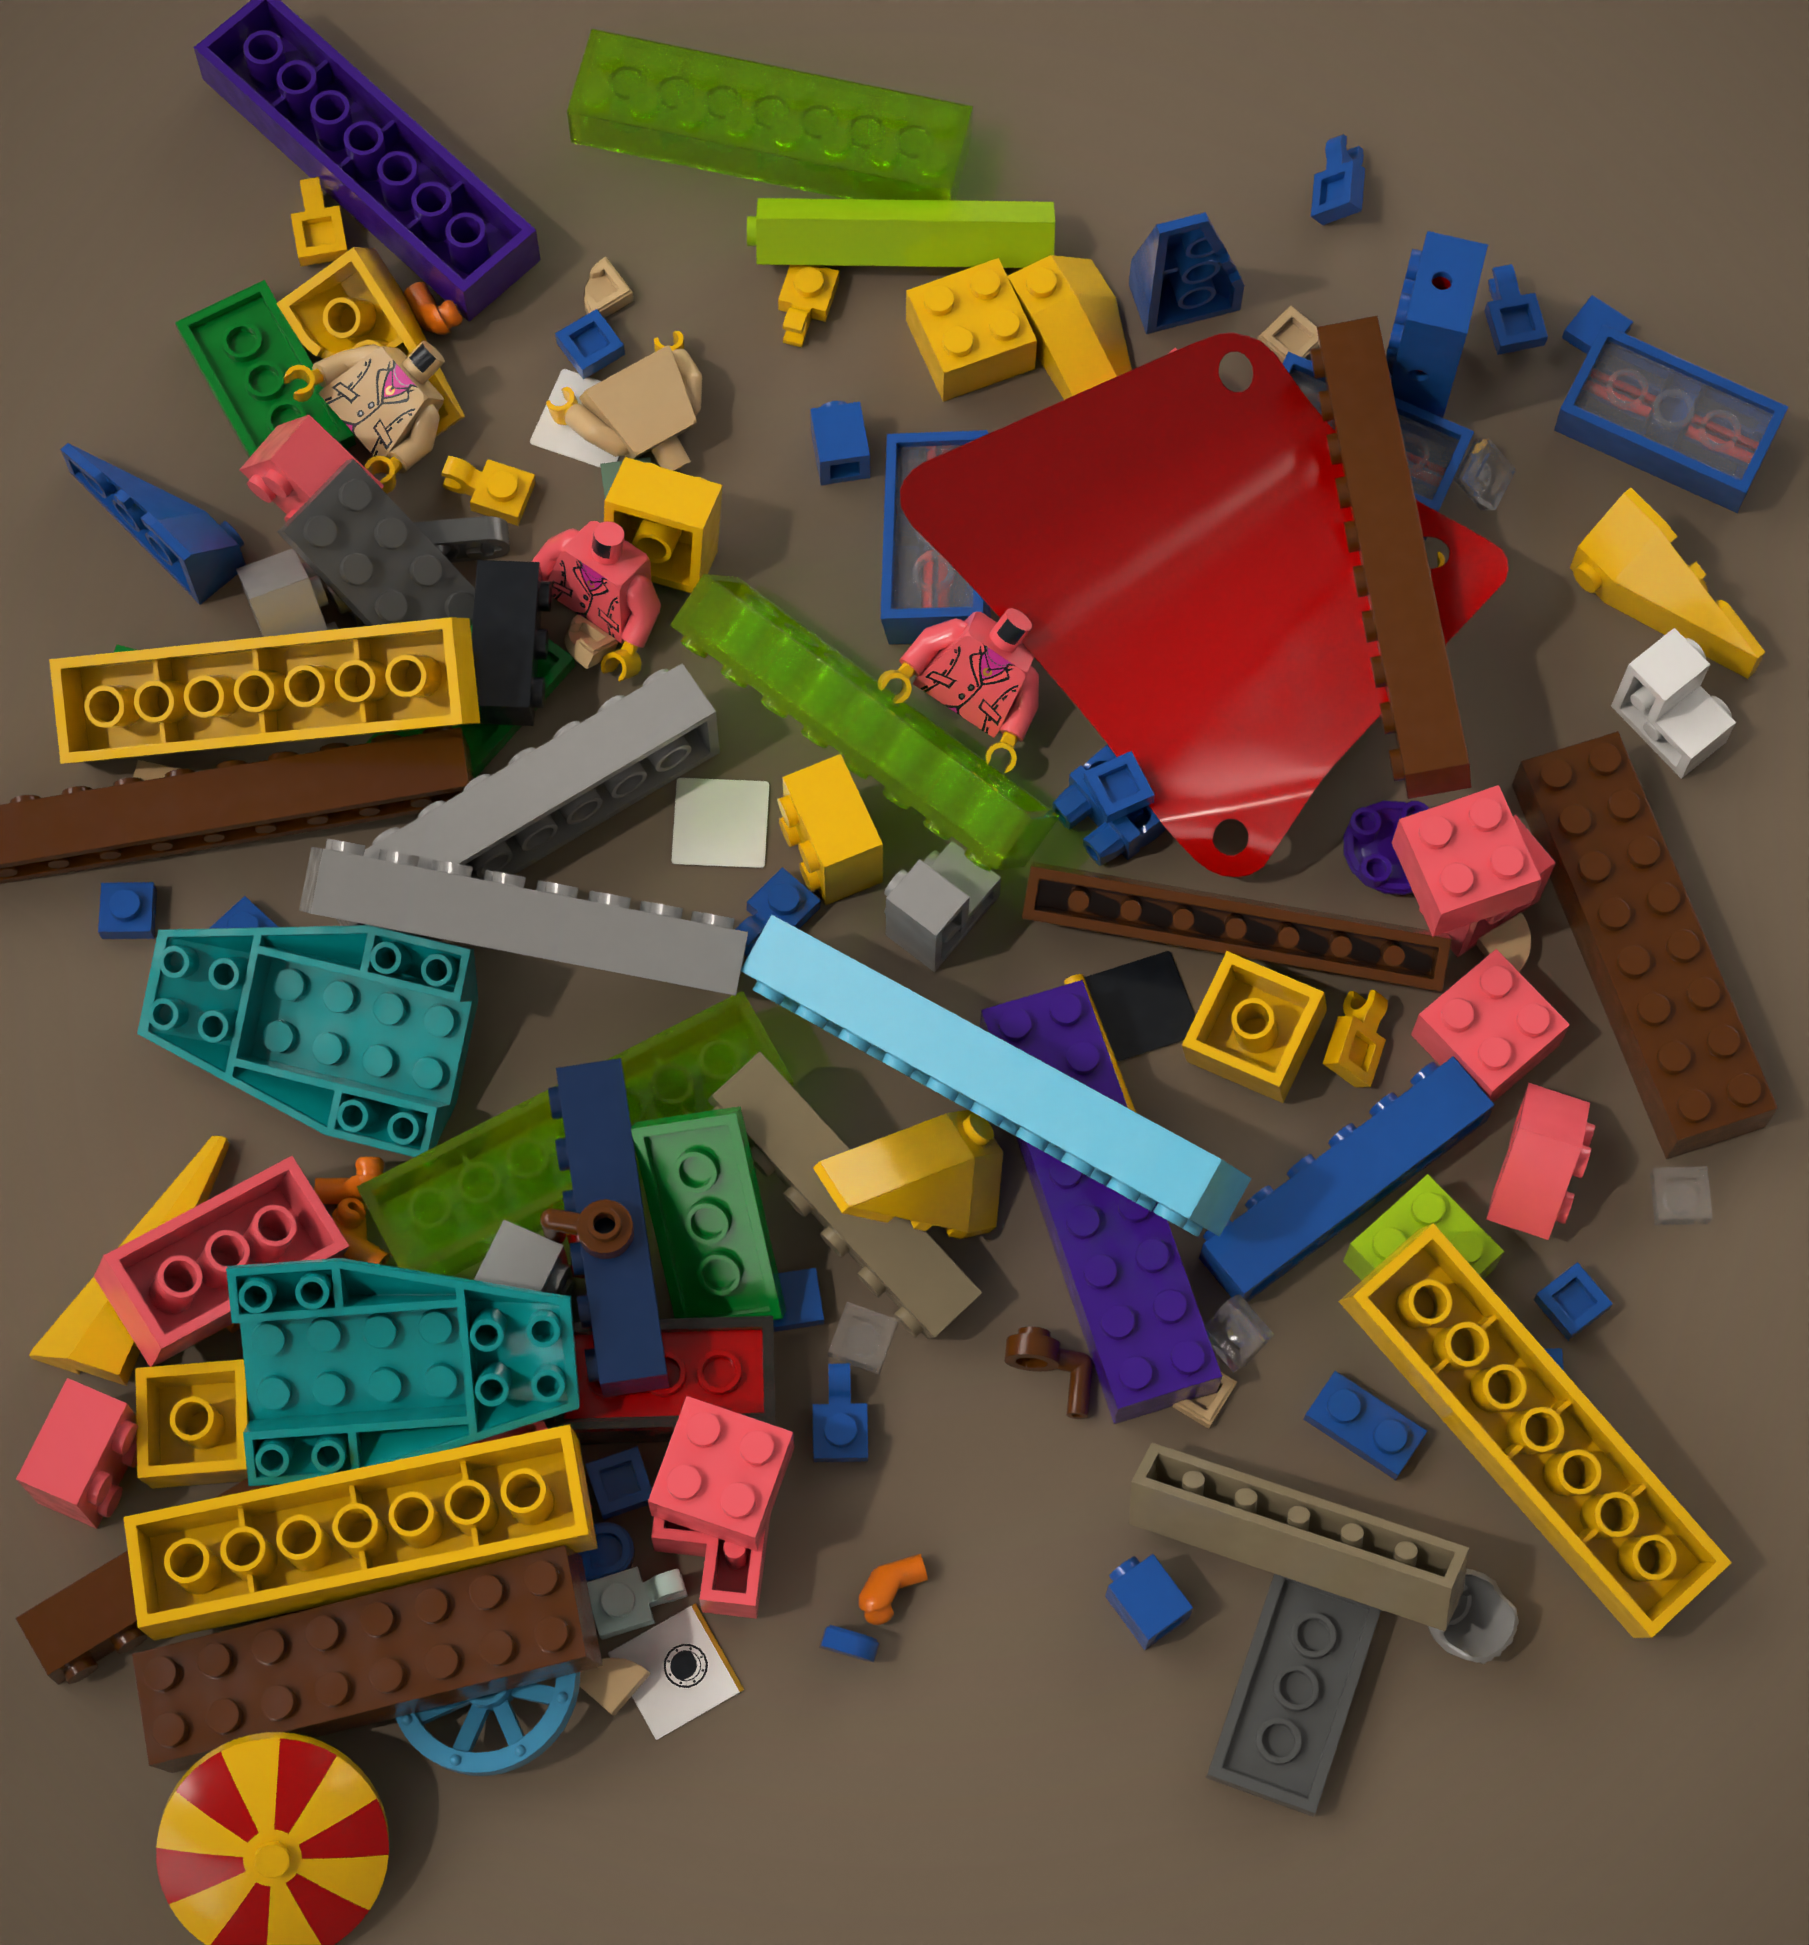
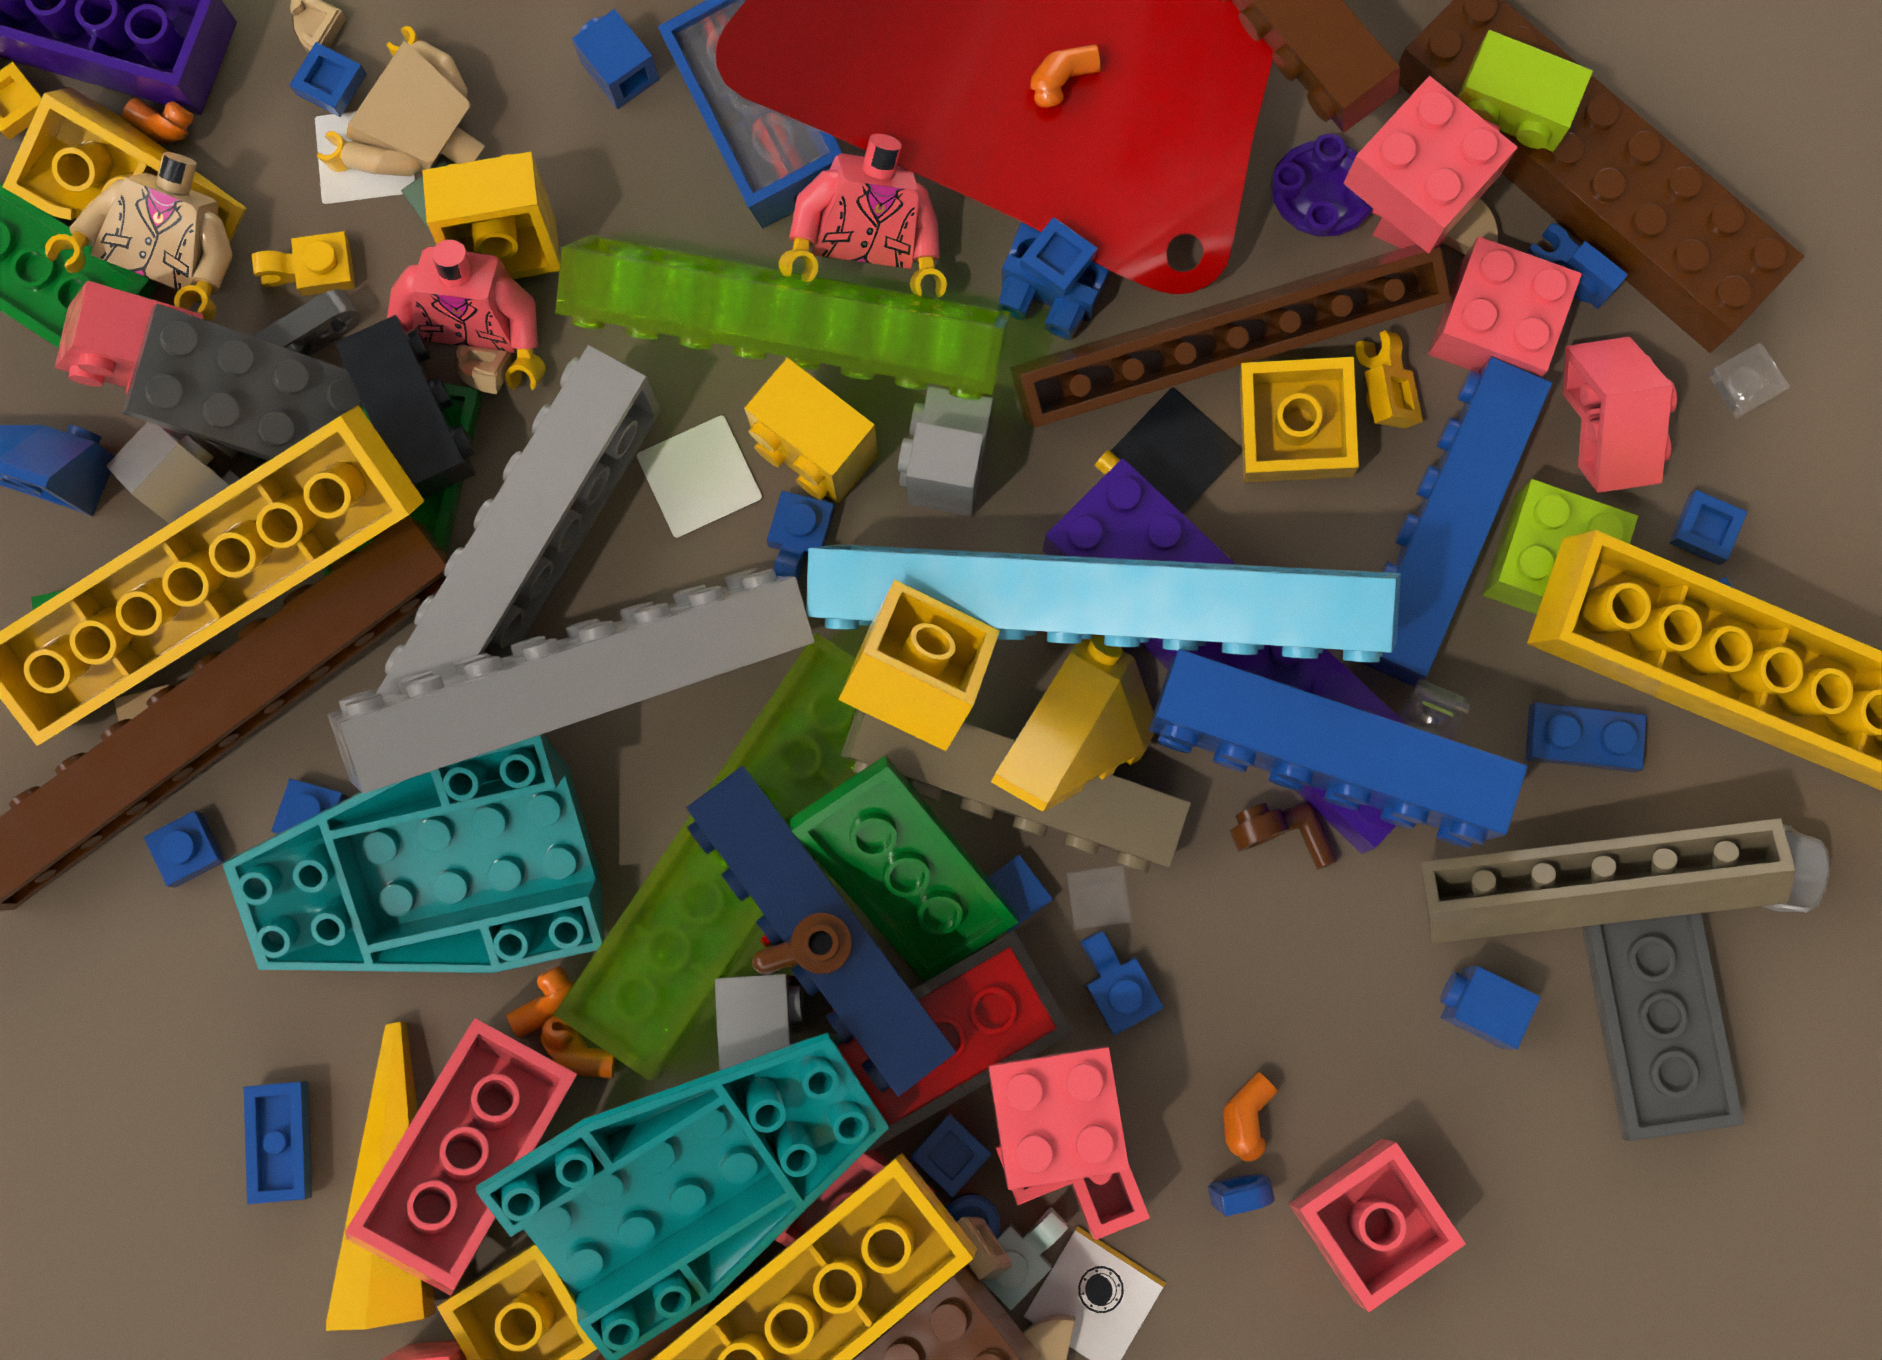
camera: 25 degrees left, 10 degrees up
(74, 1182) = (277, 1142): none -> blue plate
(603, 1564) = (990, 1257): none -> tan tile
(806, 1046) = (920, 665): none -> yellow brick
(946, 1721) = (1376, 1224): none -> coral brick
(1114, 1293) = (1336, 749): none -> blue brick
(1204, 631) = (1058, 68): none -> orange arm
(1586, 1033) = (1599, 274): none -> blue plate
(1592, 843) = (1524, 90): none -> lime brick

